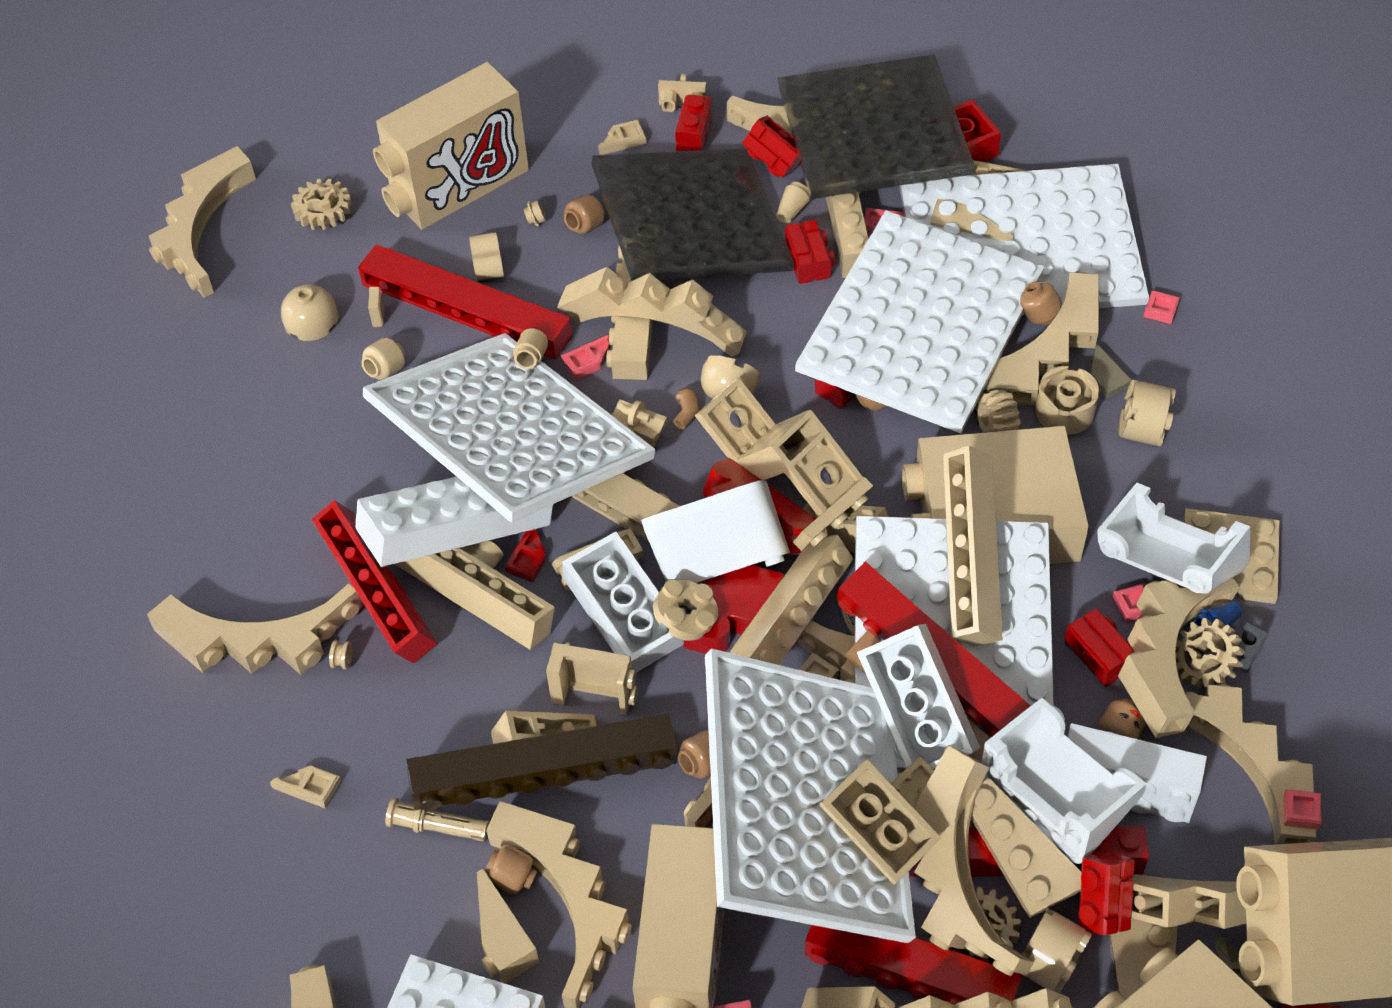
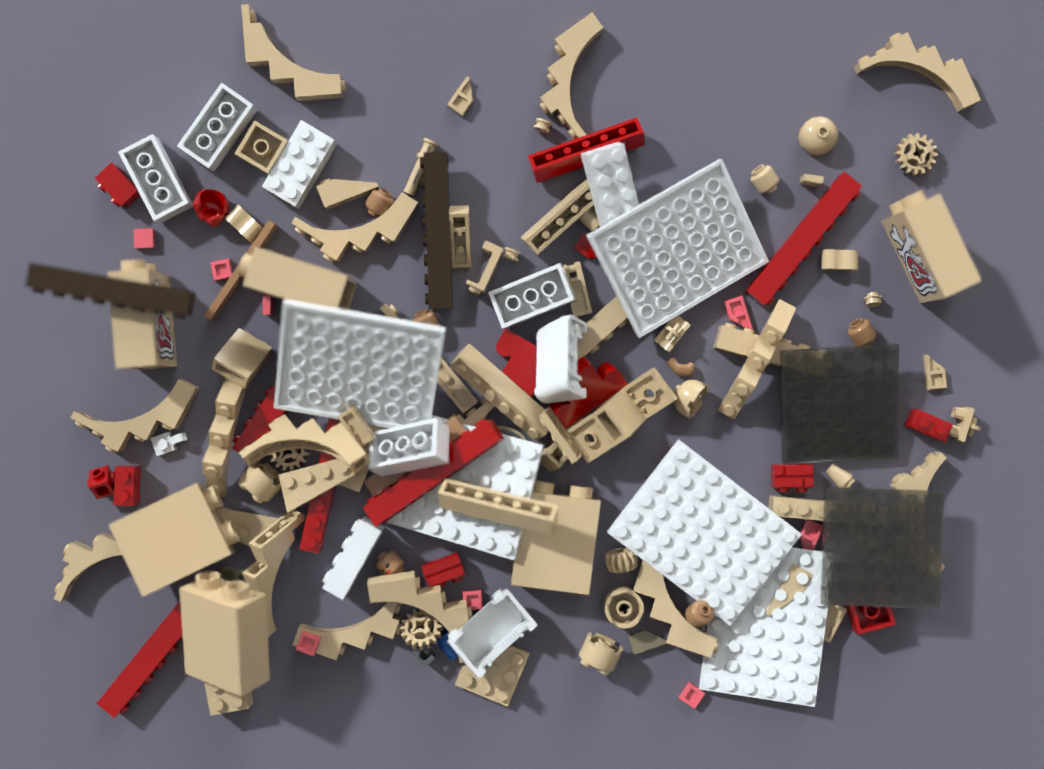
camera: 100 degrees right, 35 degrees up
(530, 348) = (741, 274): tan brick -> none
(694, 596) = (517, 341): tan plate -> none
(773, 146) = (889, 474): red brick -> none
(880, 821) = (327, 400): tan slope -> none
(1059, 782) = (340, 513): white windscreen -> none
(1106, 893) = (277, 517): red brick -> none

